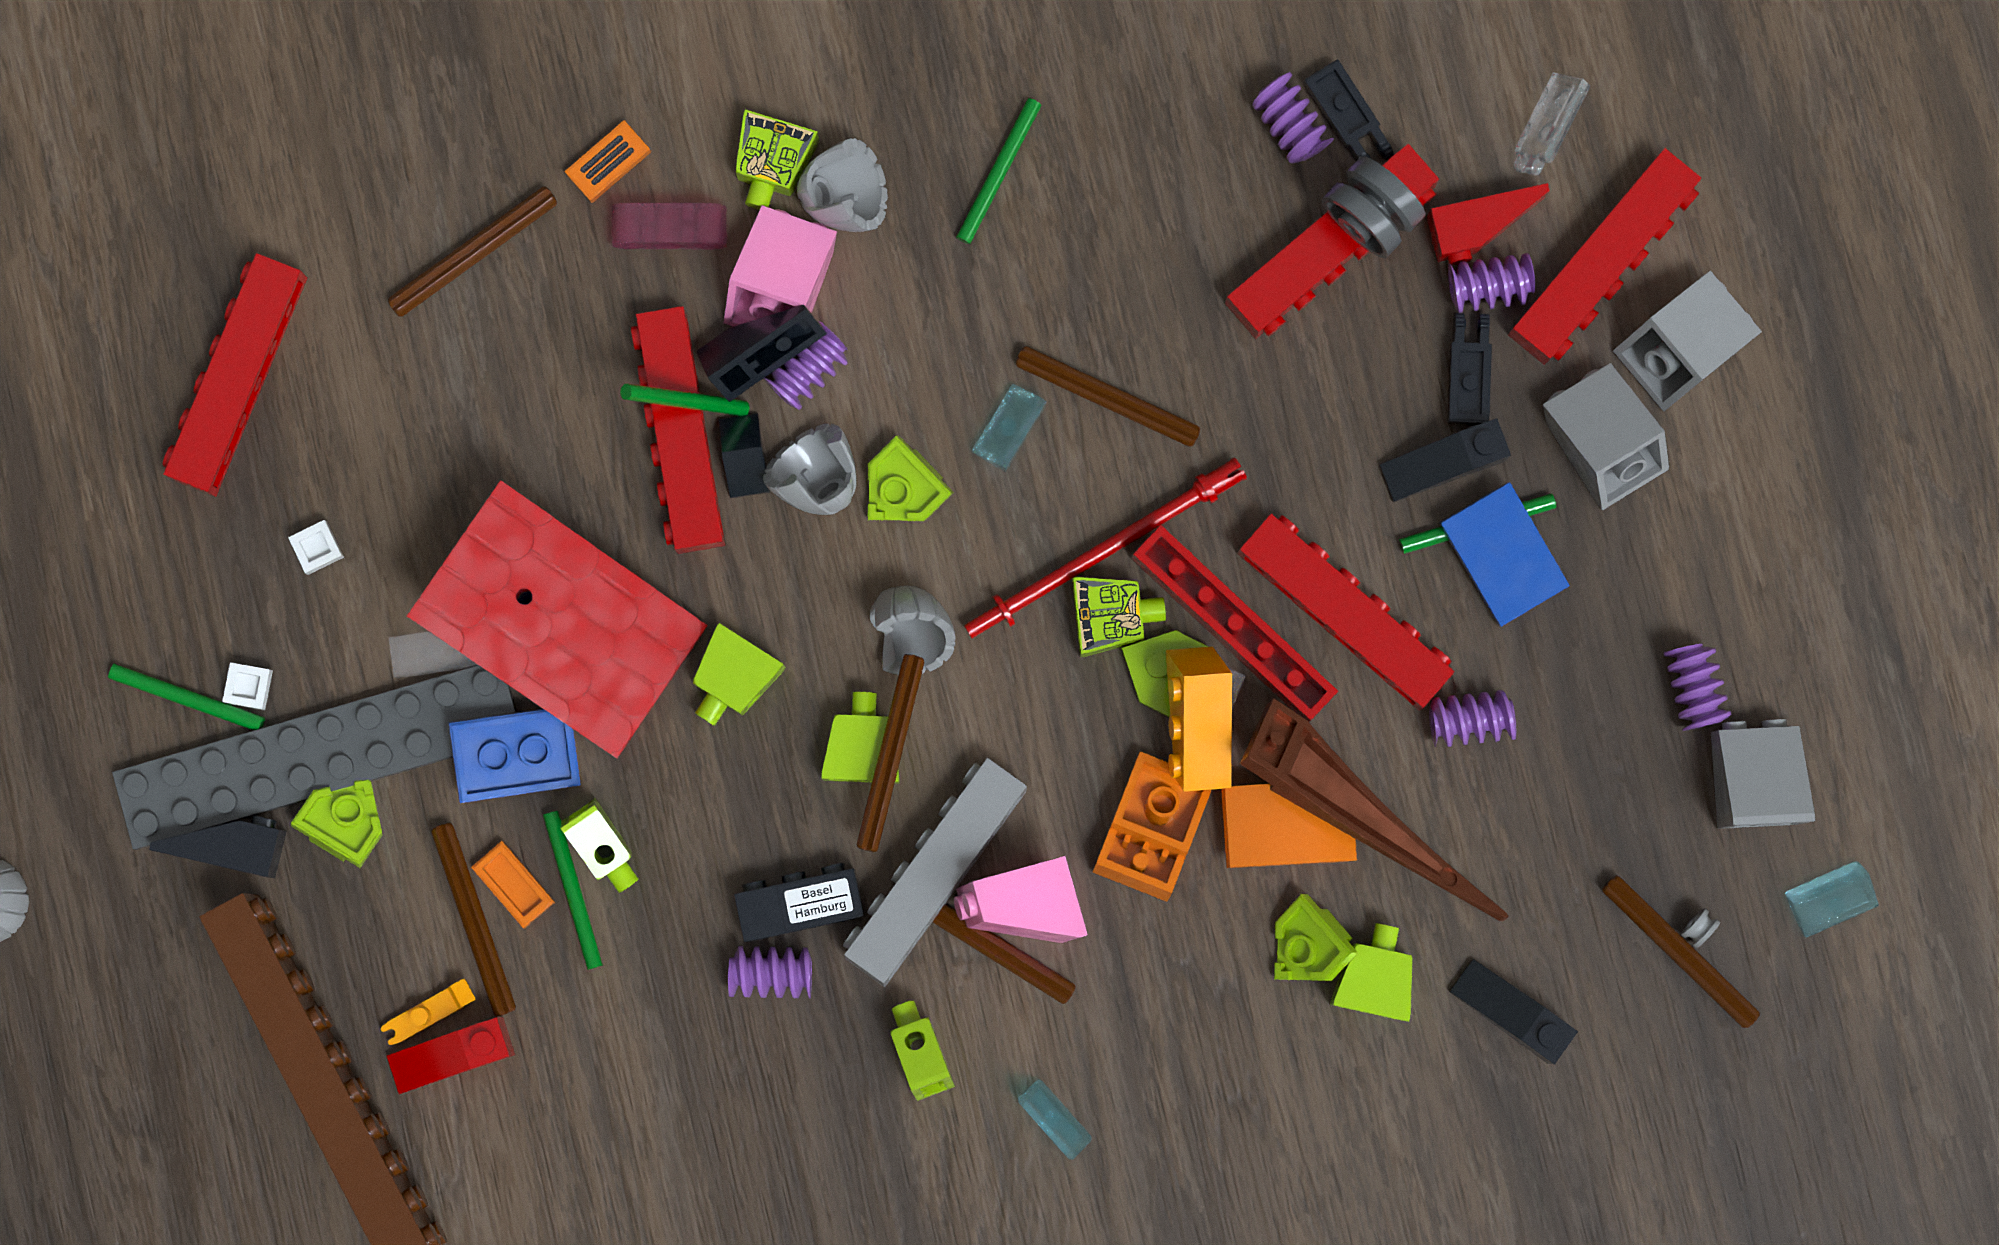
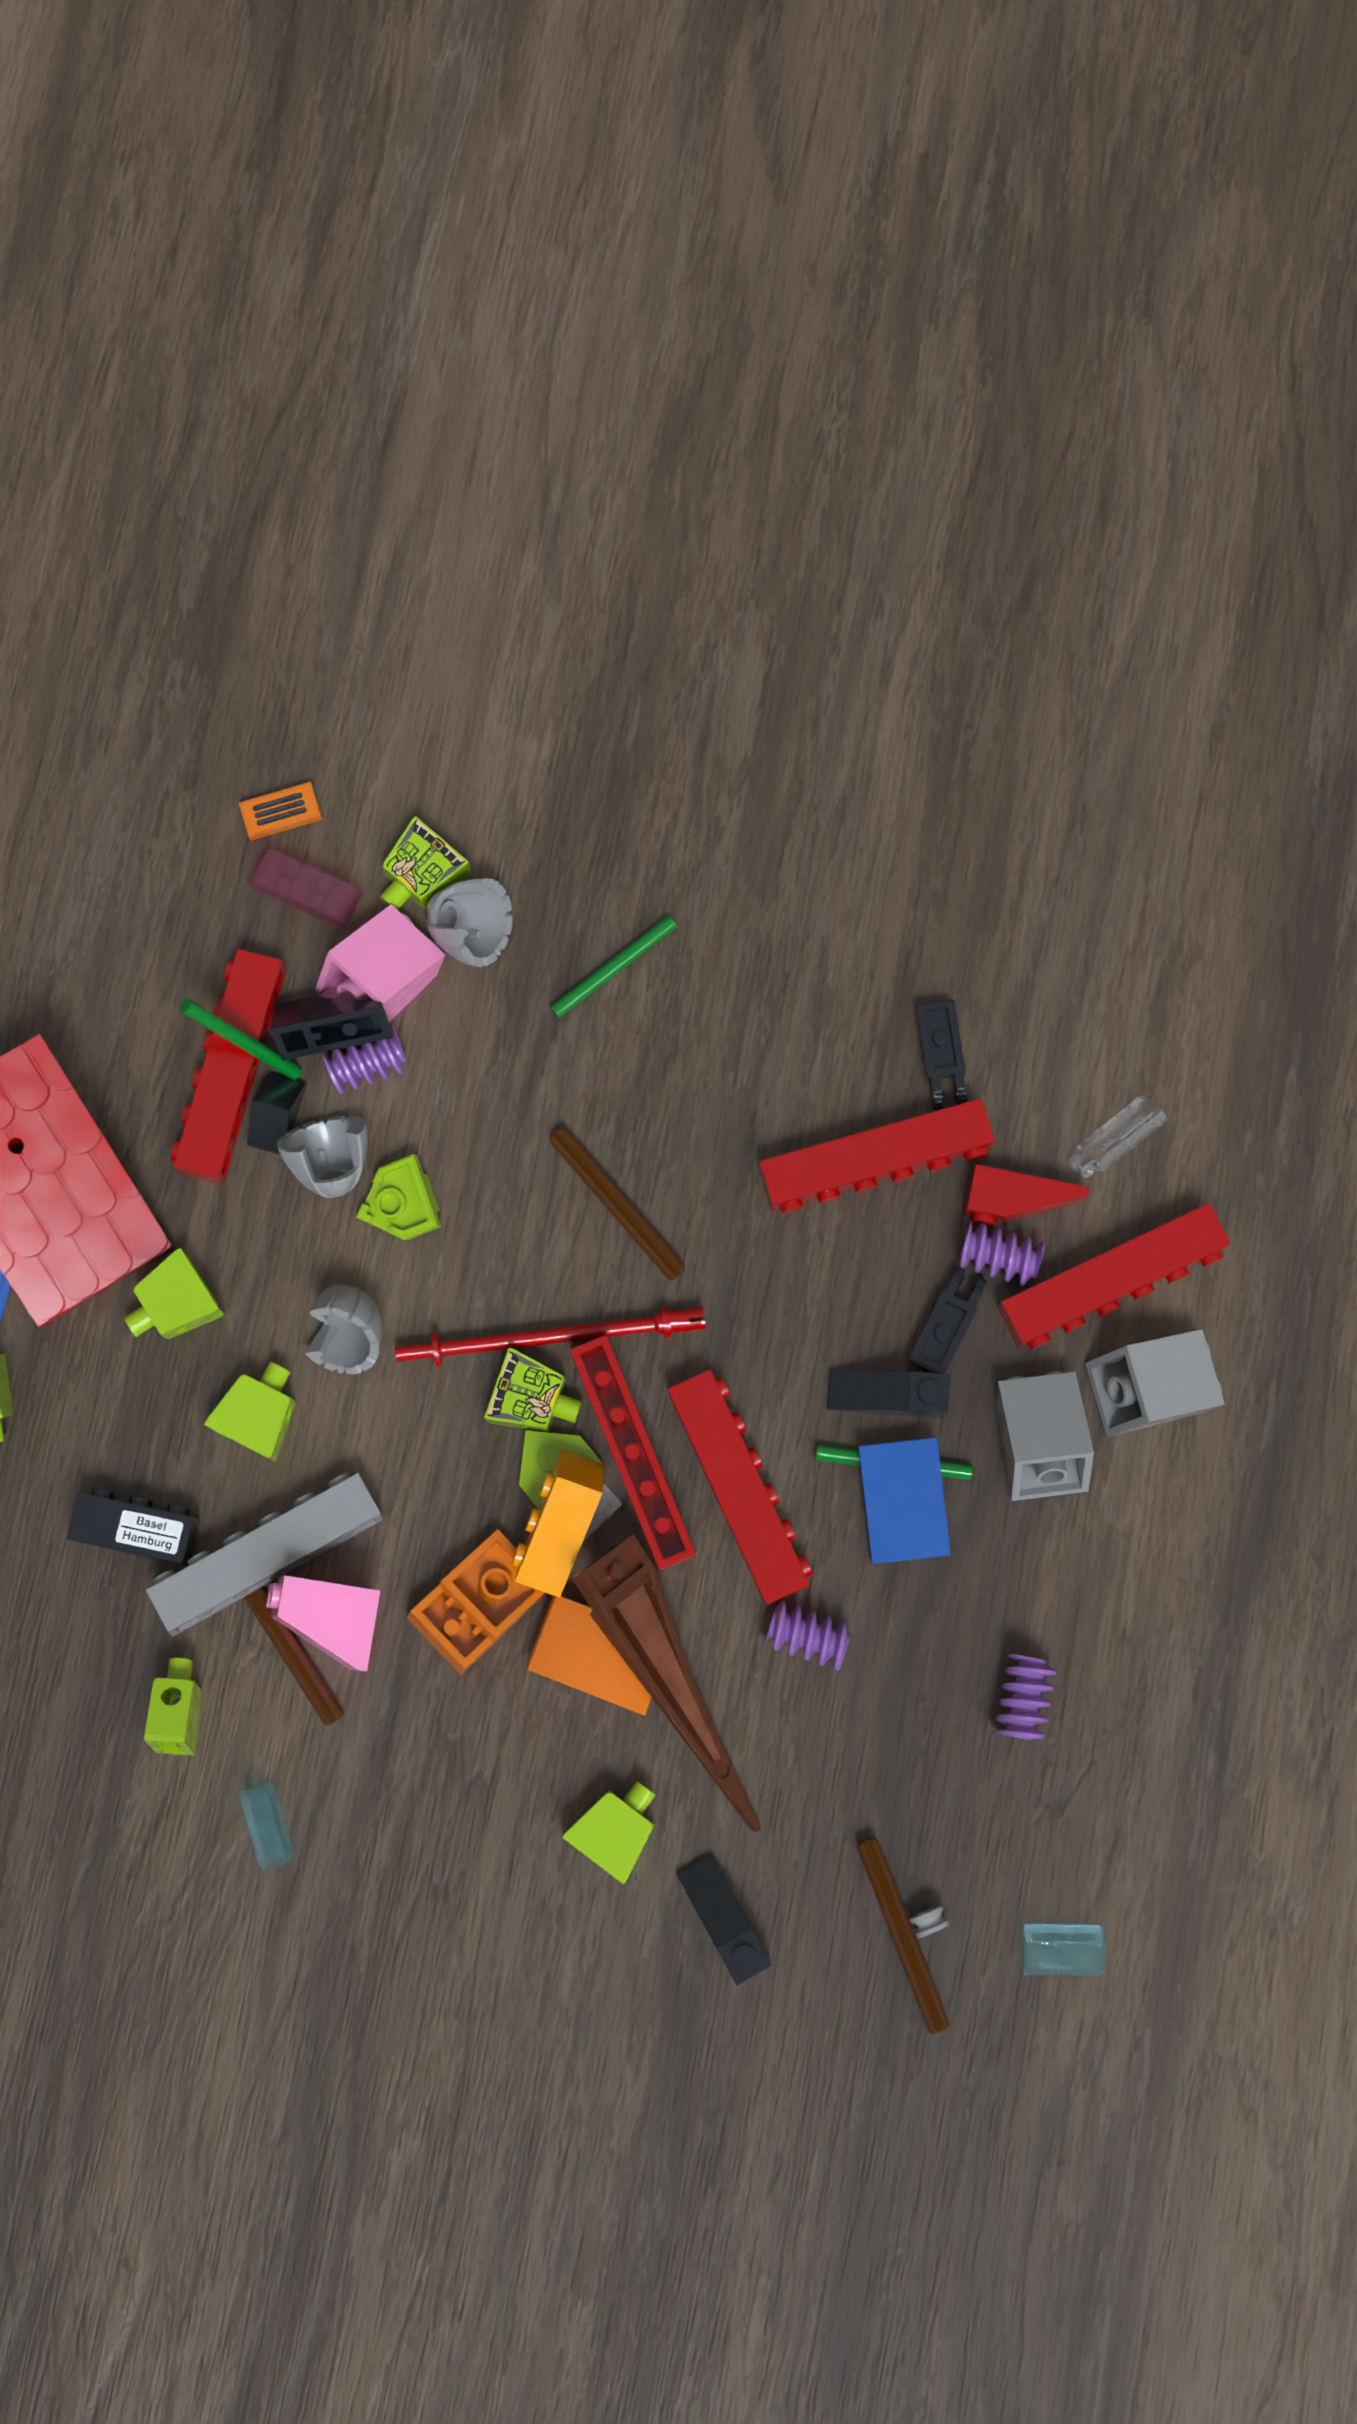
camera: 25 degrees right, 5 degrees down
(472, 251) = (128, 836): reddish brown axle -> none
(770, 972) = (77, 1578): medium lavender piece -> none
(890, 753) = (273, 1429): reddish brown axle -> none
(1009, 427) = (518, 1192): clear light blue slope -> none
(1290, 120) = (886, 1033): medium lavender piece -> none
(1310, 943) = (570, 1771): lime plate -> none
(1373, 207) = (921, 1137): dark grey wheel -> none
(1760, 775) = (1046, 1806): light grey slope -> none

